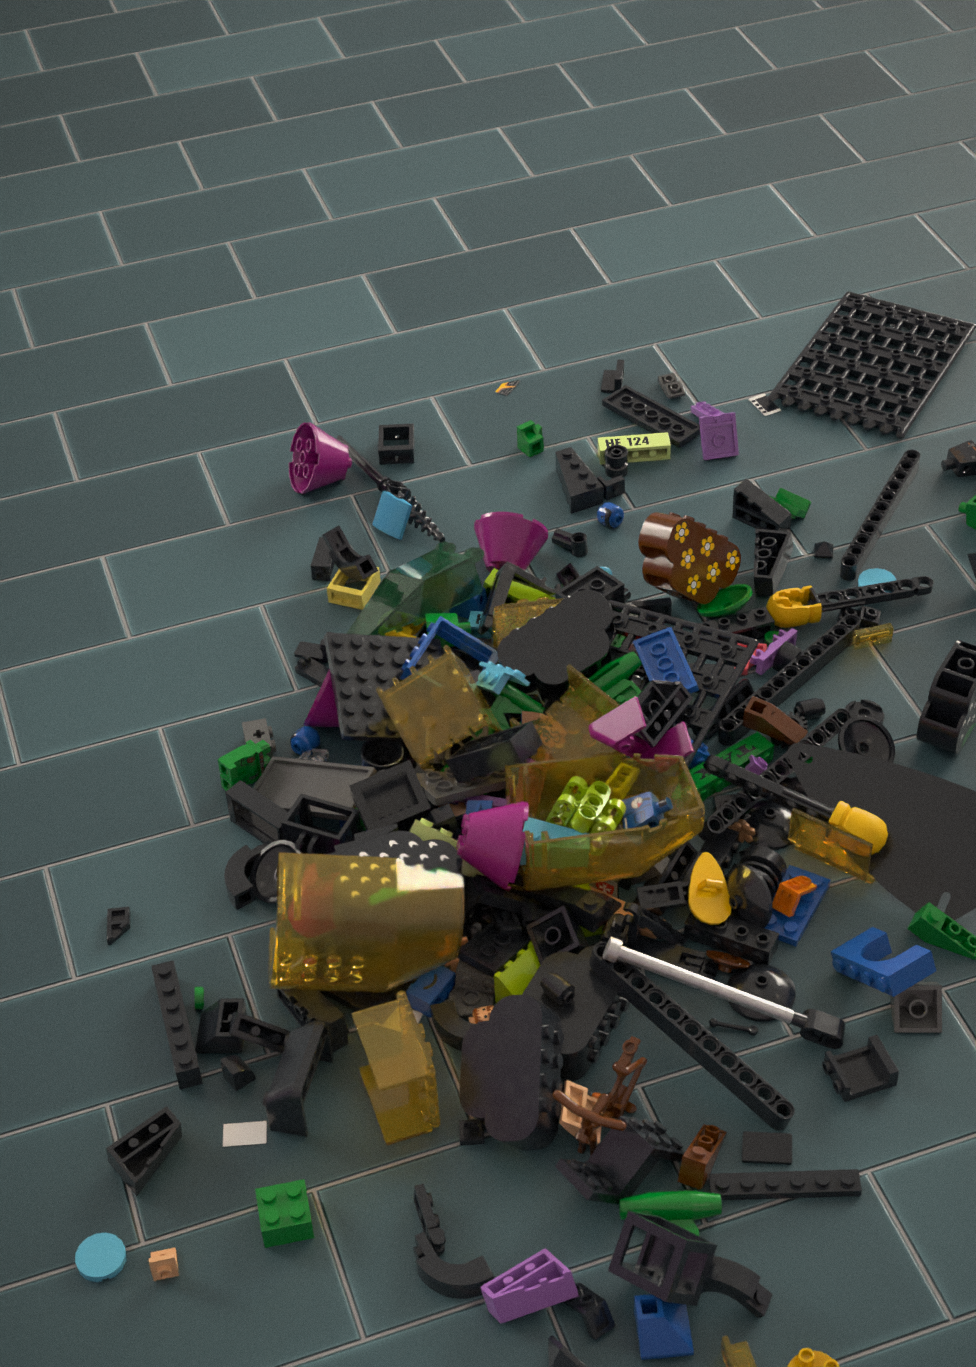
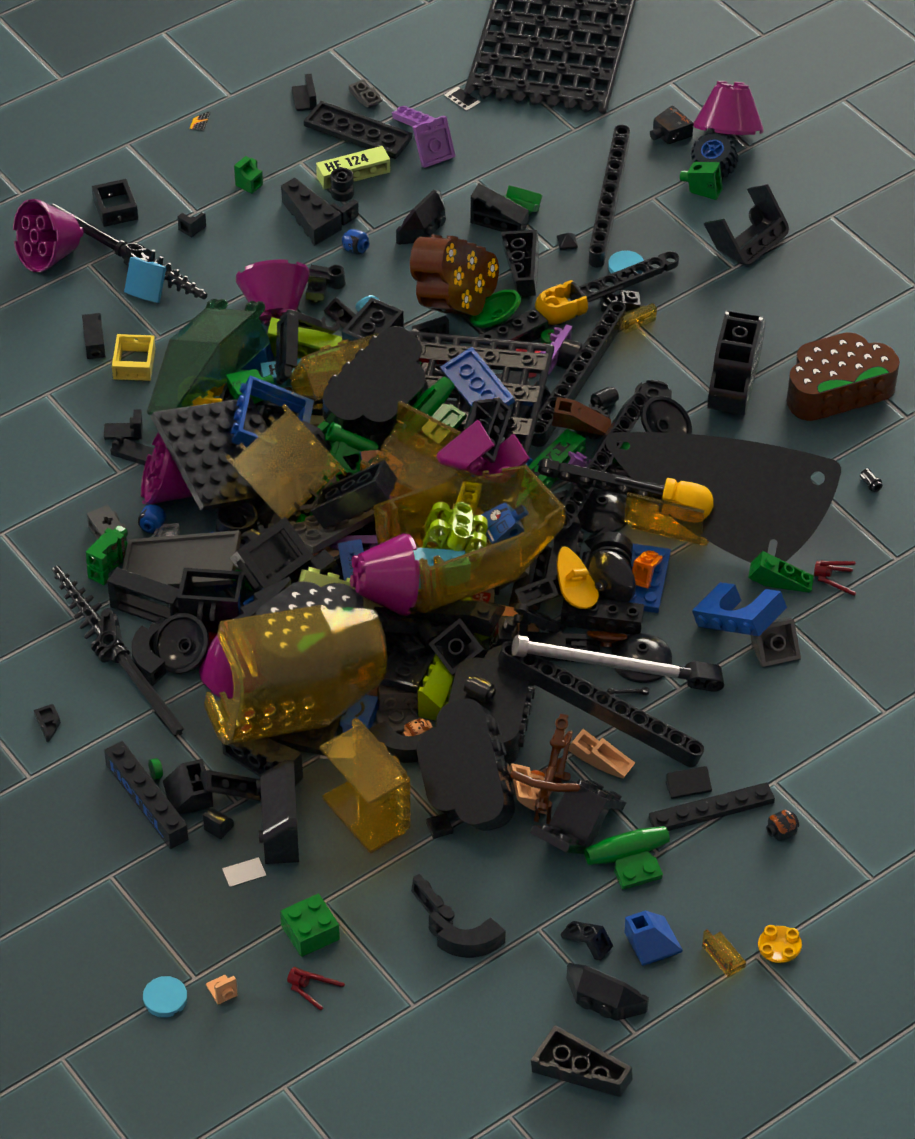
camera: 20 degrees left, 5 degrees up
(144, 1149) = (166, 902): black wedge -> none
(209, 861) = (107, 630): none -> black piece
(251, 1274) = (301, 978): none -> dark red plant
(346, 558) = (122, 333): black arch -> none
(460, 476) = (191, 225): none -> black panel
(496, 676) = (331, 426): medium azure bracket -> none
(529, 1287) = (537, 932): medium lavender wedge -> none
(556, 552) = (316, 288): none -> black bracket
(670, 1263) = (641, 883): black piece -> none
(677, 1092) = (600, 754): none -> light nougat slope
(687, 500) = (423, 219): none -> black wedge
(701, 1156) = (638, 800): reddish brown slope -> none
(738, 1283) = (689, 887): black arch -> none
(744, 830) = (585, 521): medium nougat plant -> none
(860, 1226) = (782, 825): none -> black head
(861, 1070) = (746, 703): black panel -> none

